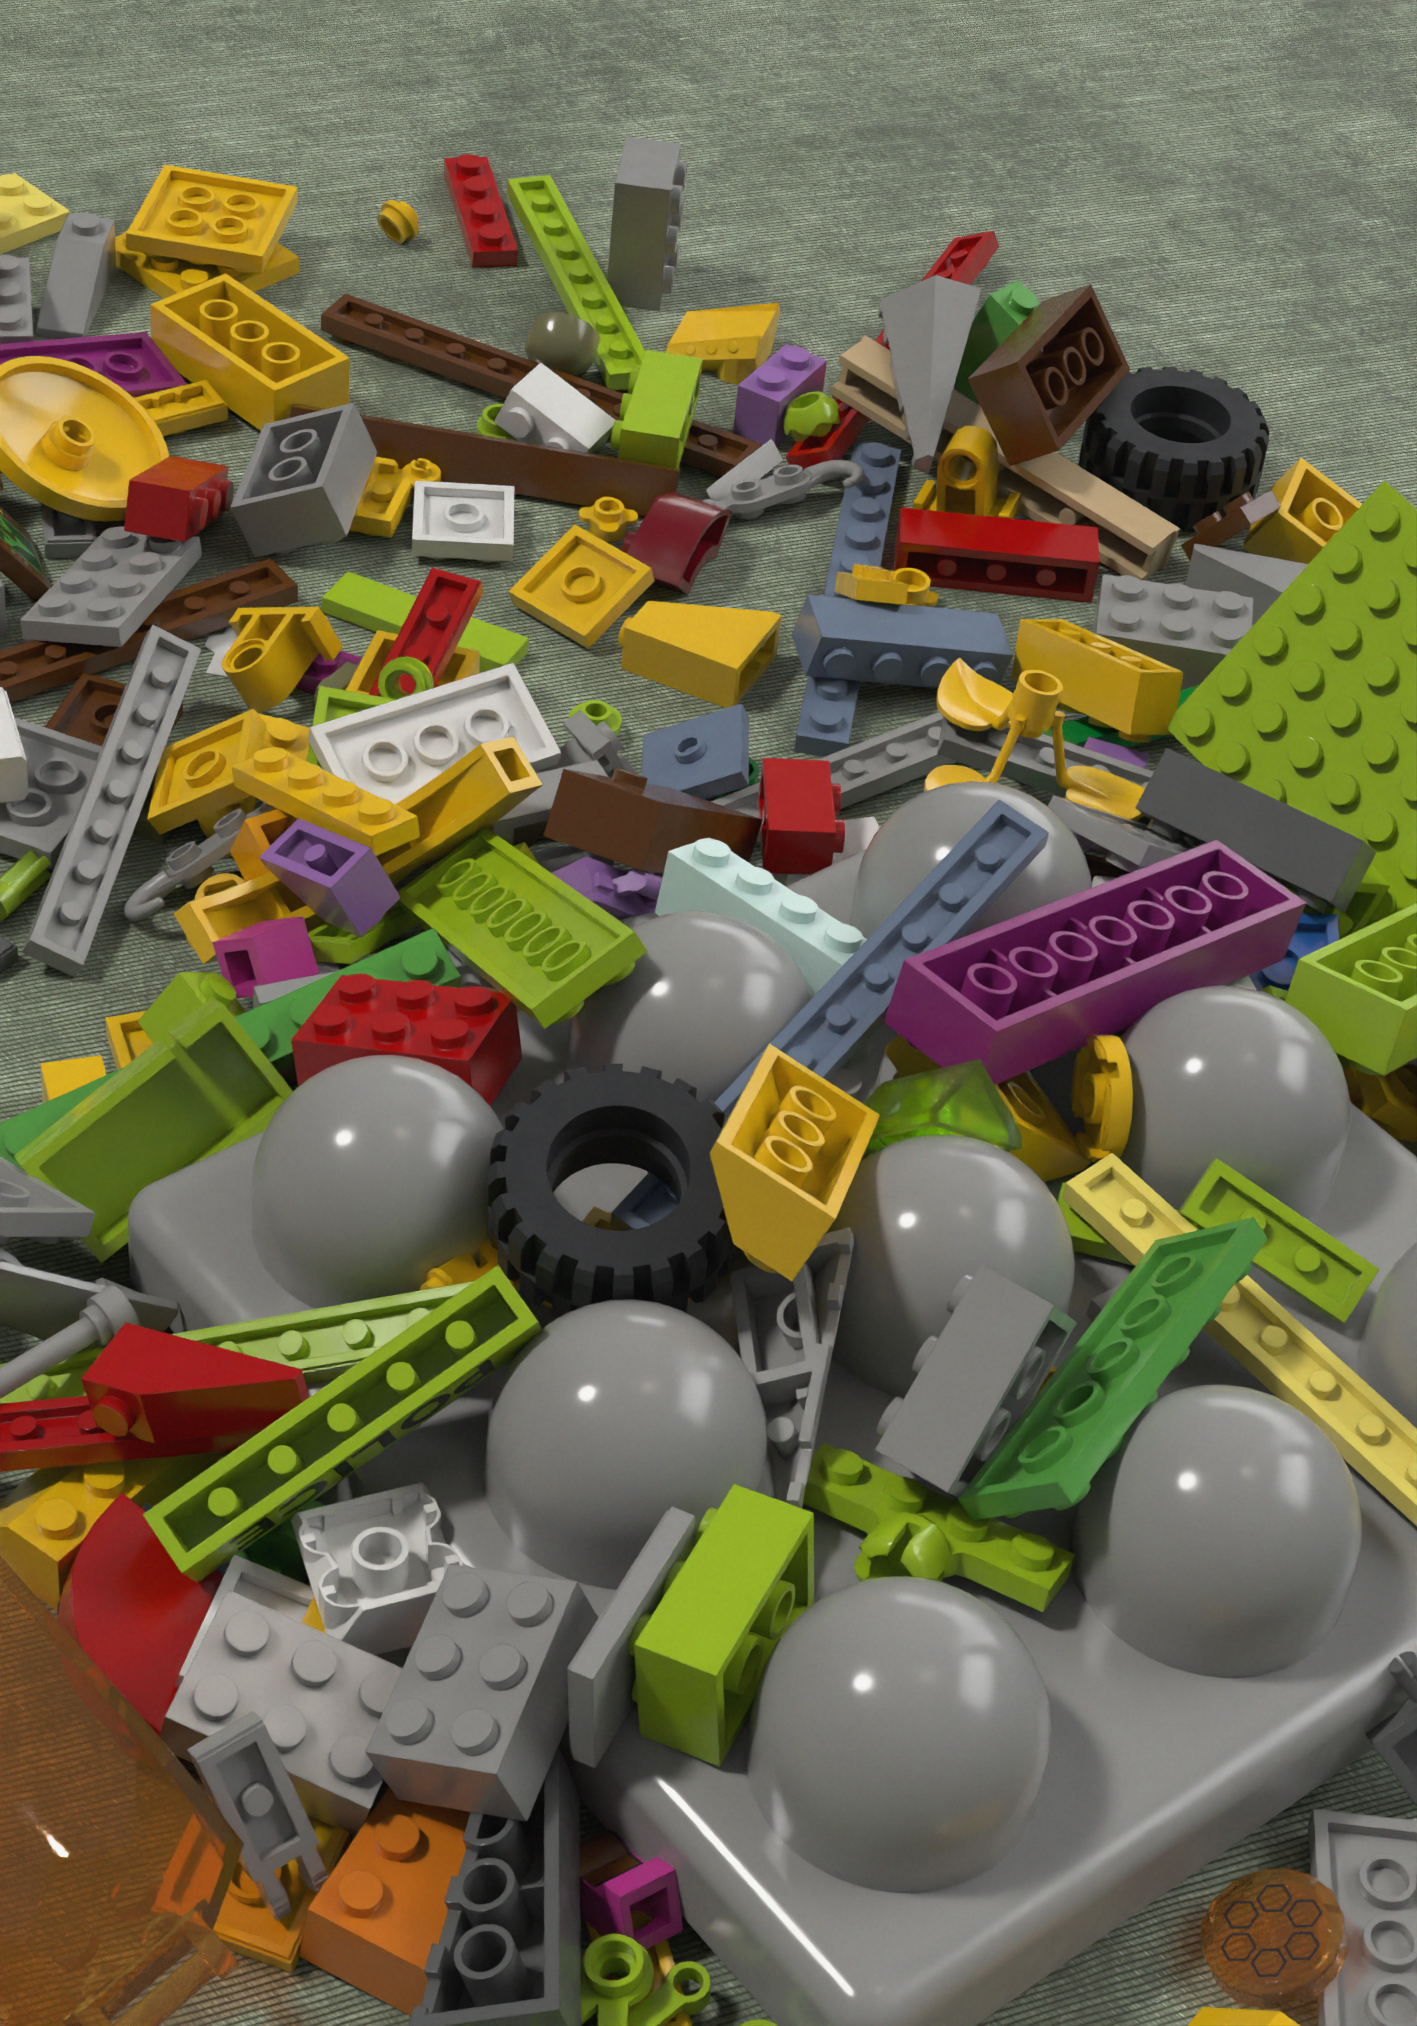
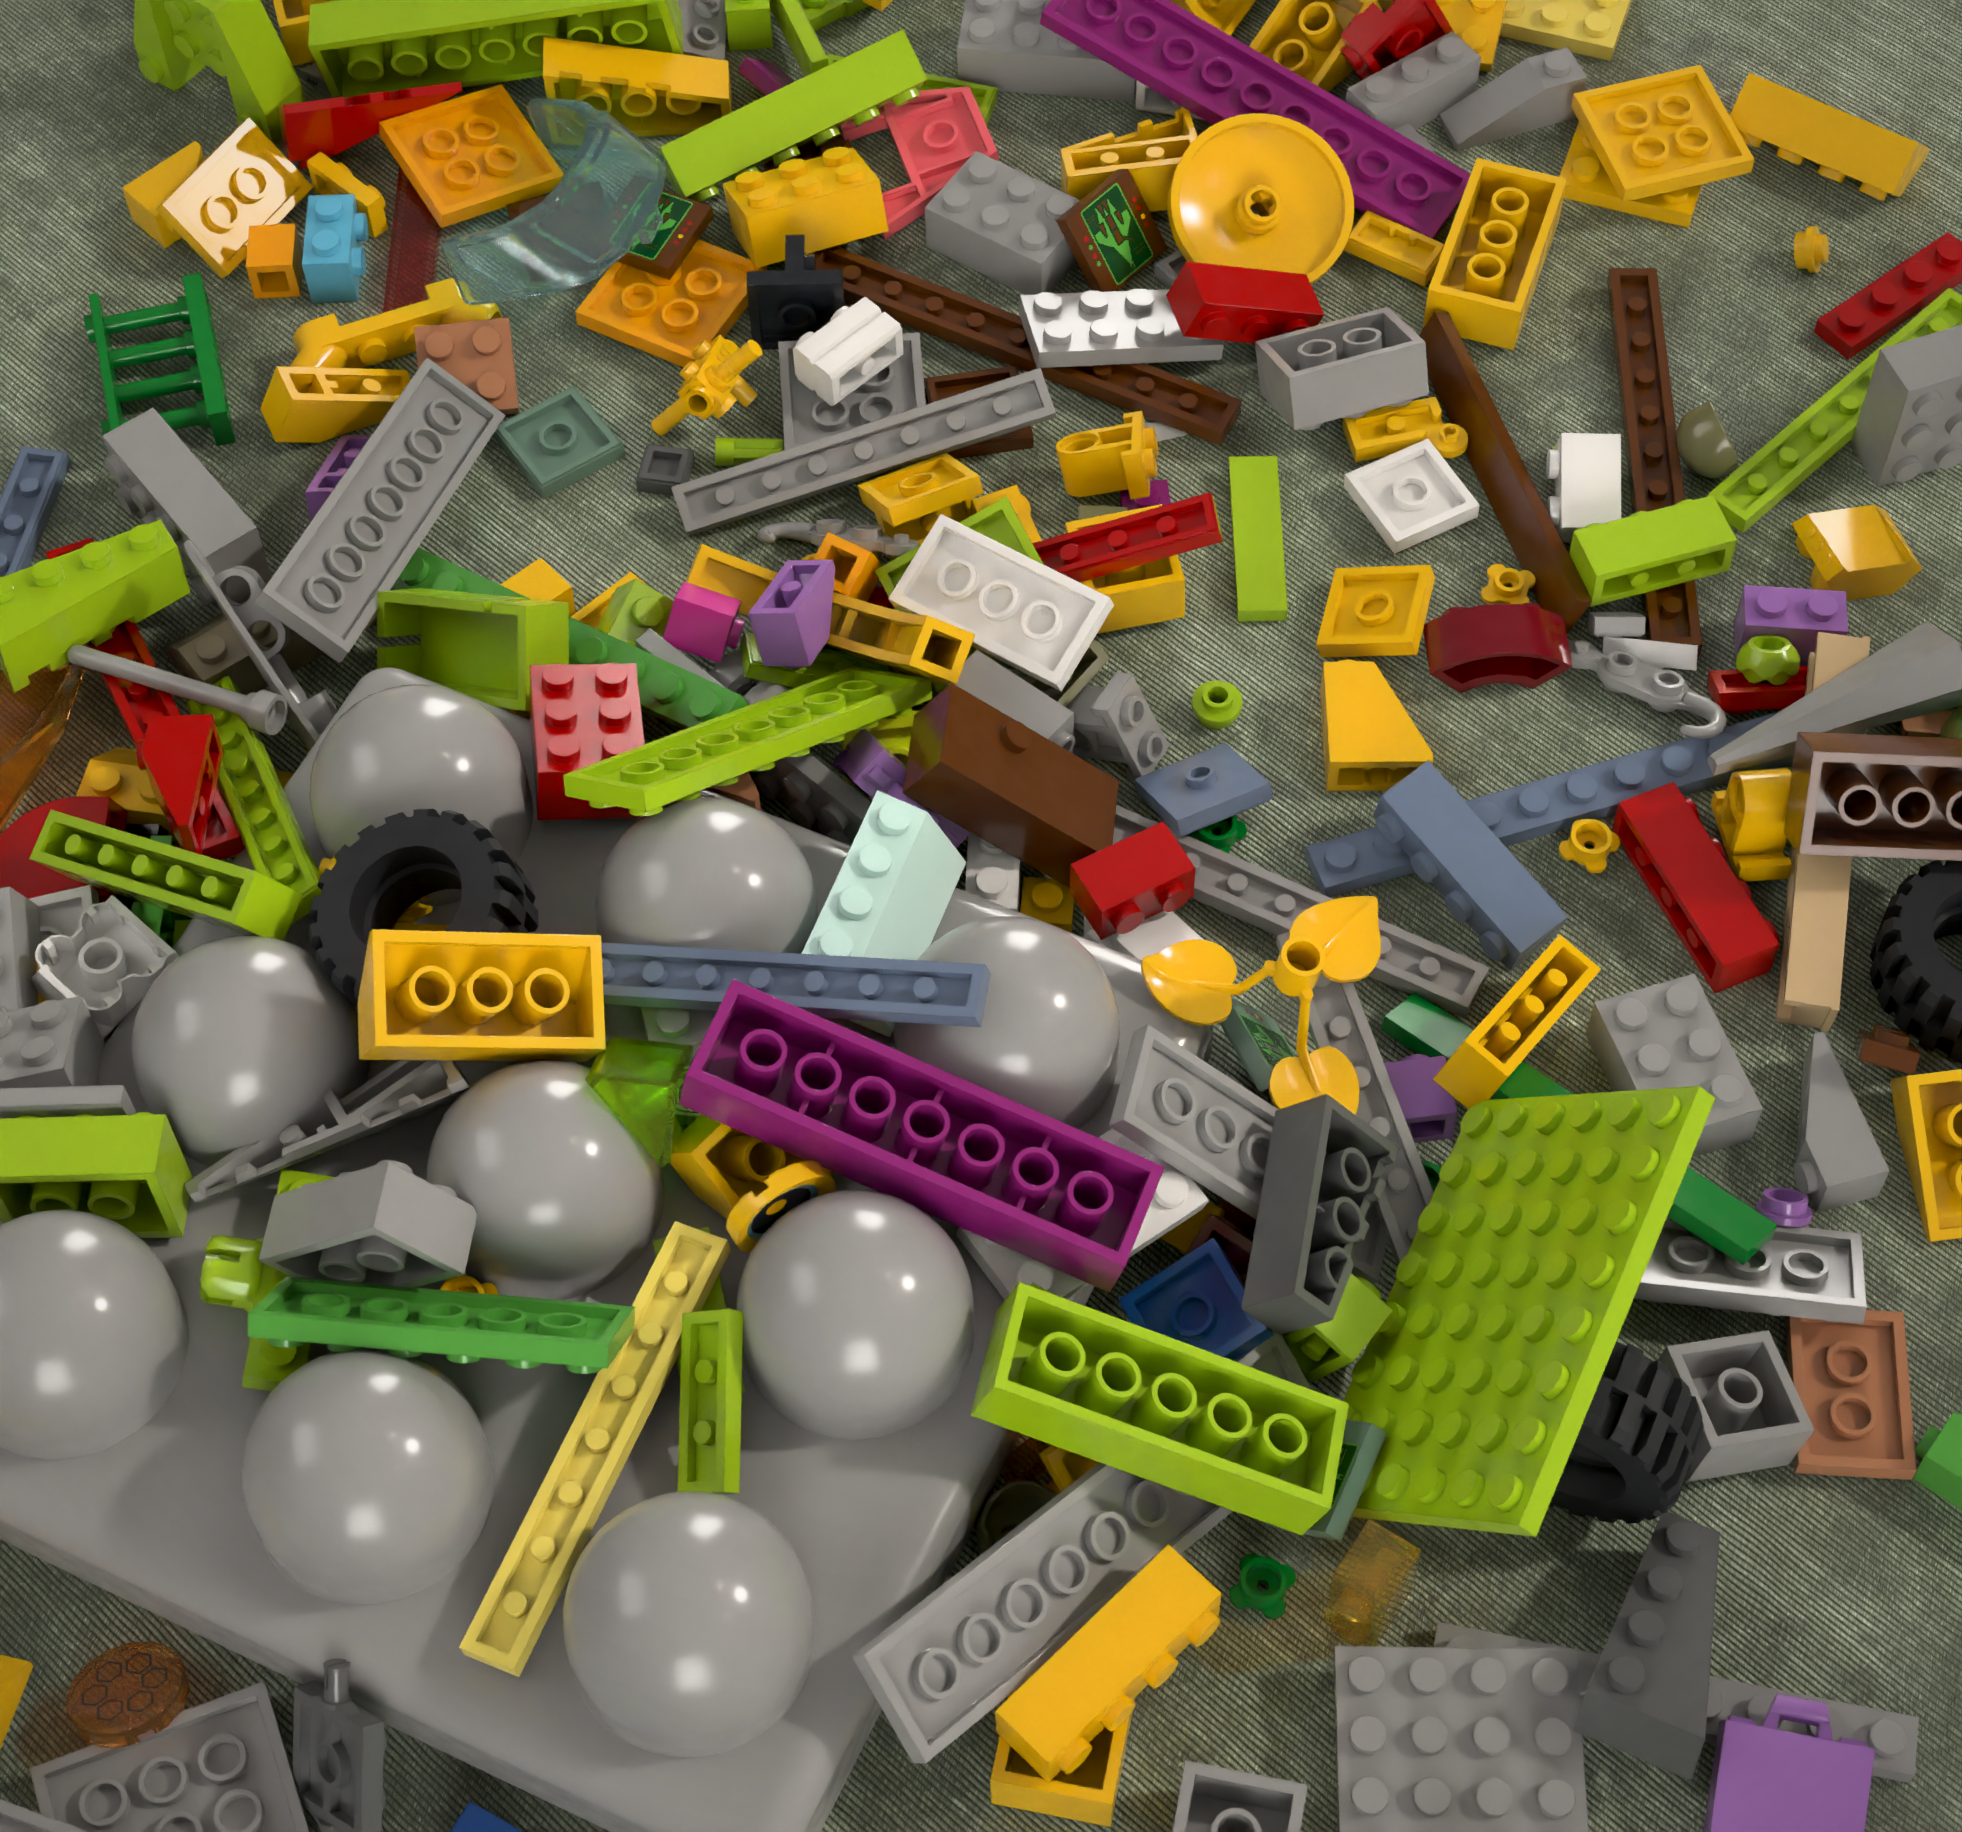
camera: 70 degrees right, 15 degrees up
(301, 151) = (1826, 136): none -> yellow slope
(325, 800) = (864, 566): yellow plate -> none
(391, 673) = (1062, 548): lime plate -> none
(703, 475) = (1616, 624): none -> light grey tile
(871, 584) = (1509, 805): yellow plate -> none

